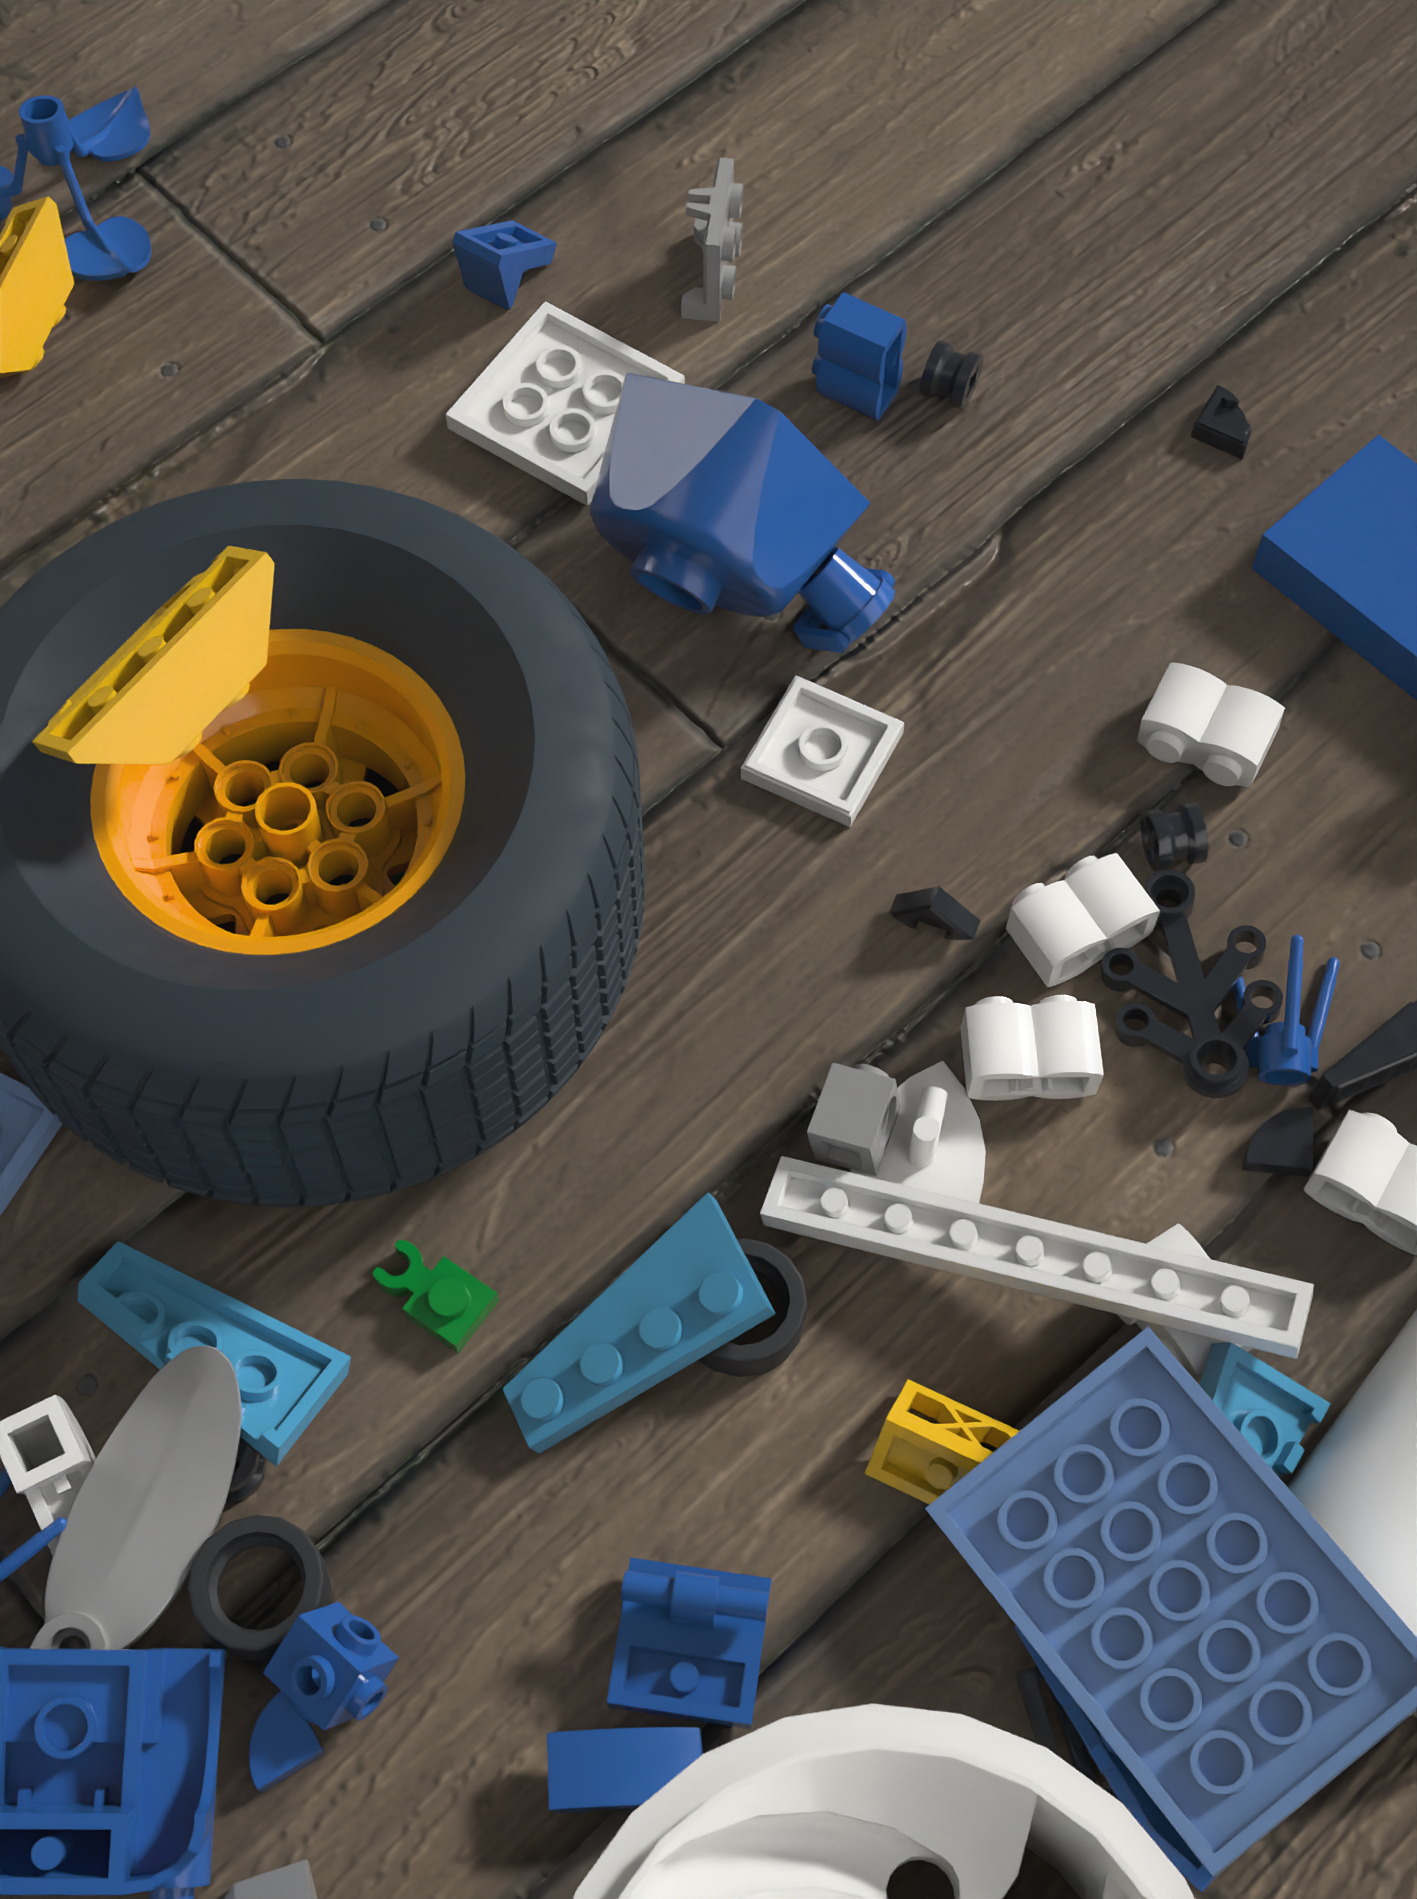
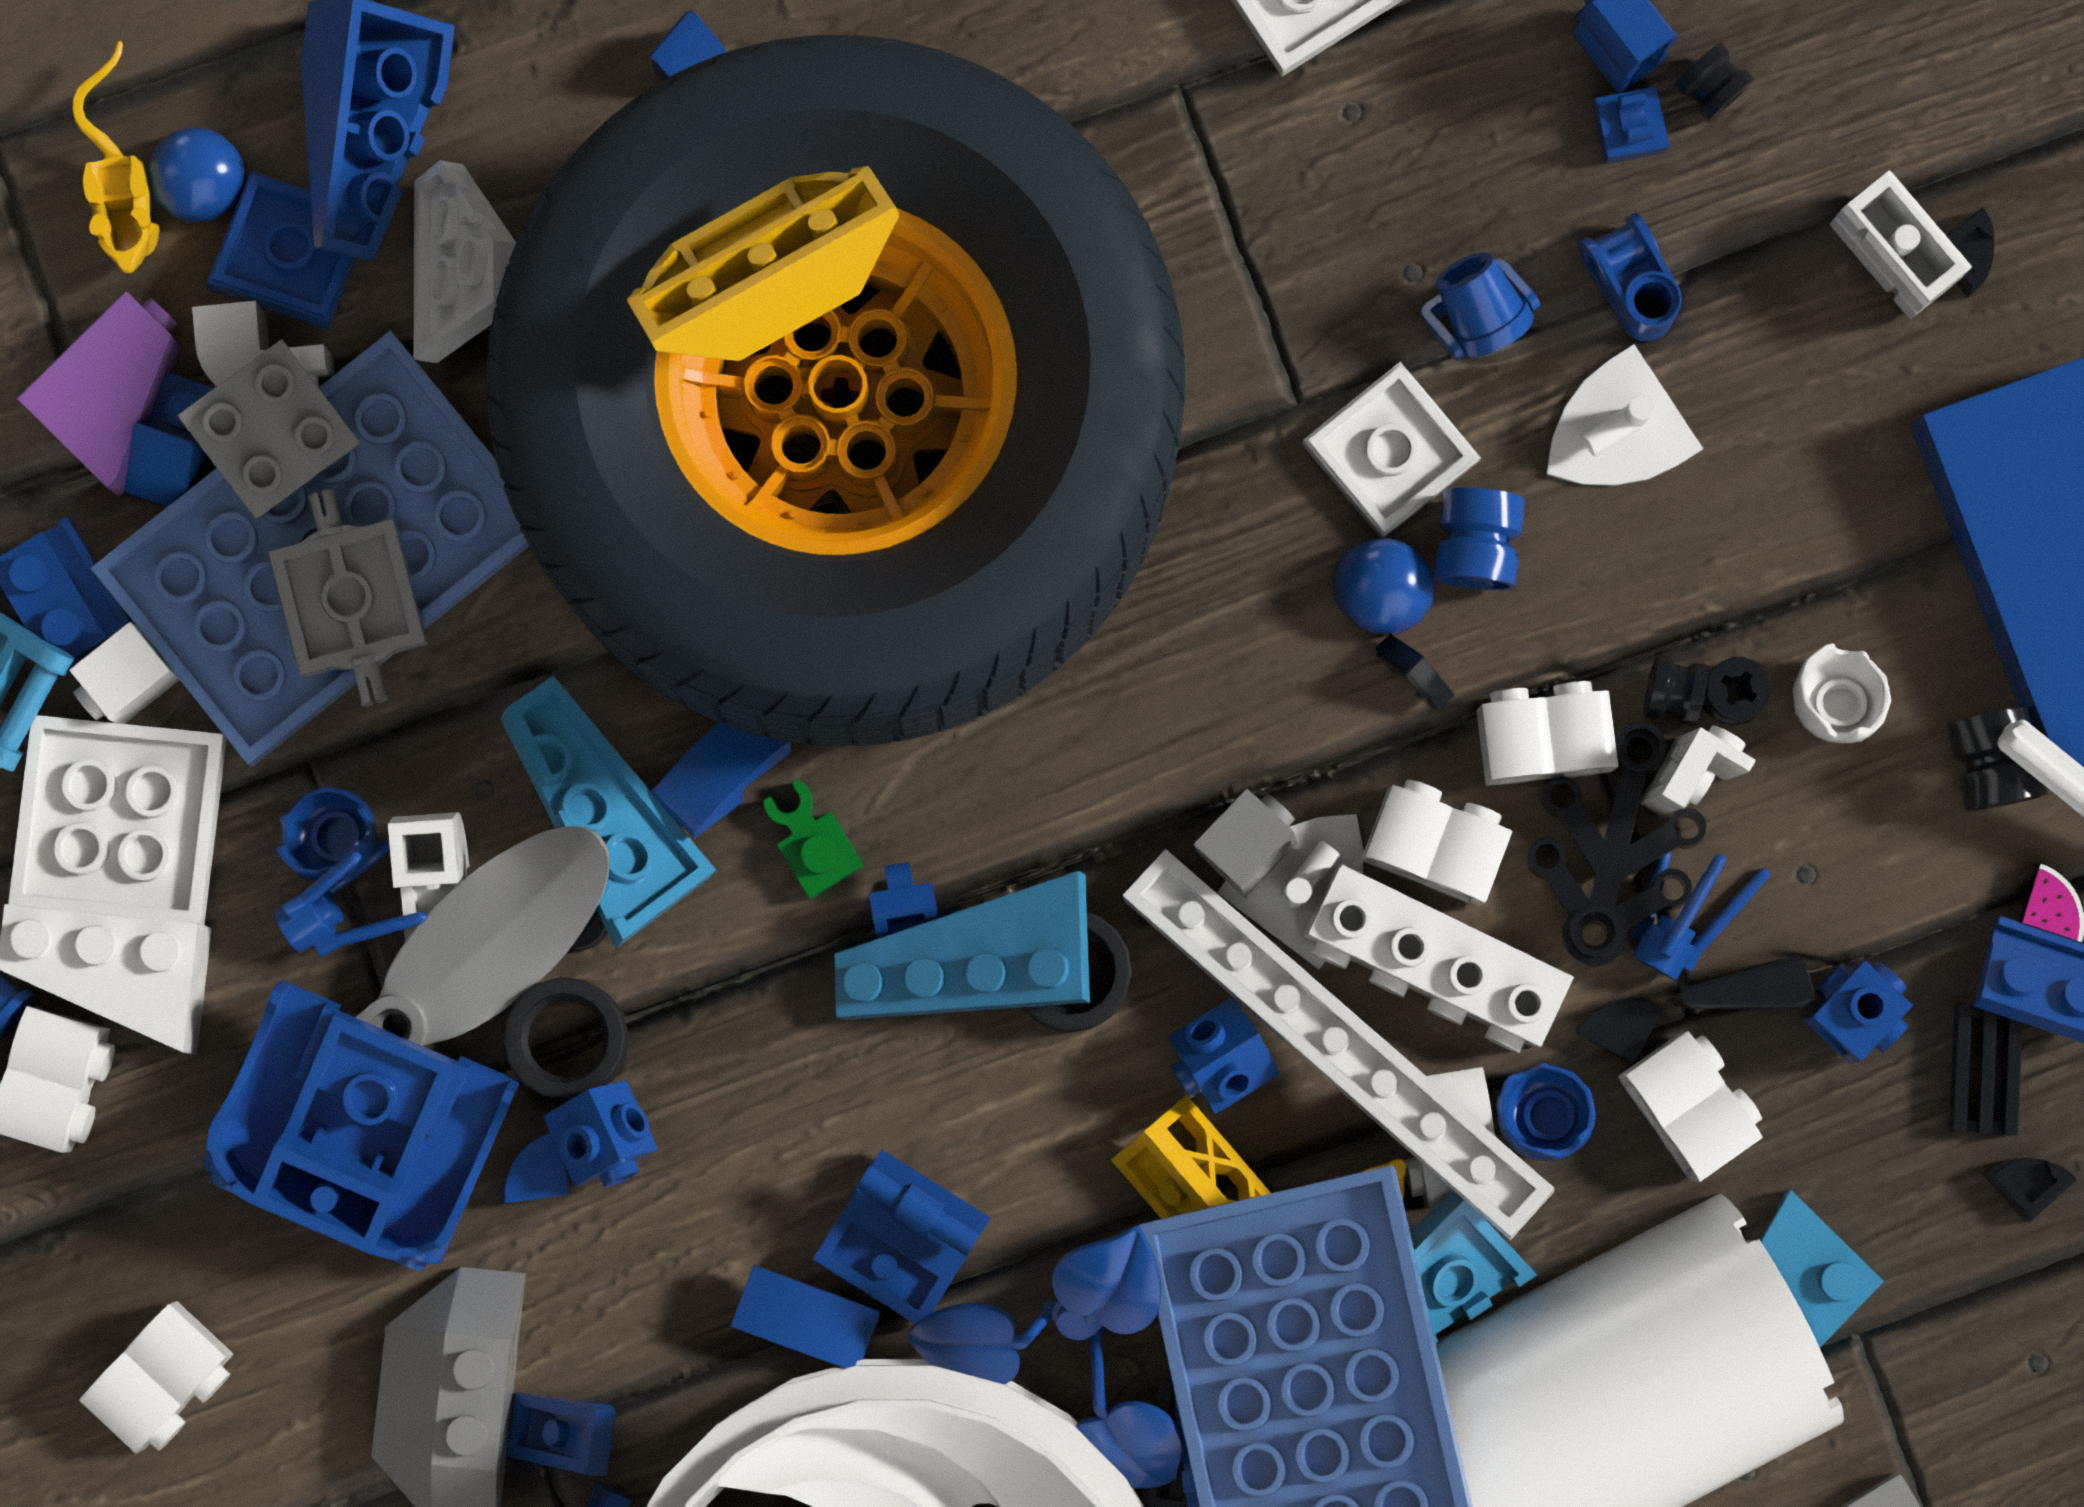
camera: 20 degrees right, 20 degrees up
(314, 1262) = (713, 775): none -> blue slope
(548, 1307) = (903, 903): none -> blue tile
(717, 498) = (1386, 174): blue piece -> none
(871, 856) = (1383, 585): none -> blue hair
(898, 434) = (1630, 125): none -> blue tile
(917, 1564) = (1095, 1288): none -> blue plant
(927, 1320) = (1221, 1056): none -> blue brick
(937, 779) = (1480, 533): none -> blue wheel
(963, 538) = (1630, 266): none -> blue piece
(1010, 660) = (1619, 427): none -> white shield
(1083, 1147) = (1436, 957): none -> white brick
(1169, 424) = (1900, 244): none -> white brick
(1210, 725) = (1769, 591): white brick -> none
(1225, 835) = (1727, 700): none -> black wheel
(1231, 876) = (1692, 766): none -> white bracket
(1260, 1236) = (1545, 1112): none -> blue hair
(1318, 782) = (1841, 695): none -> white hair

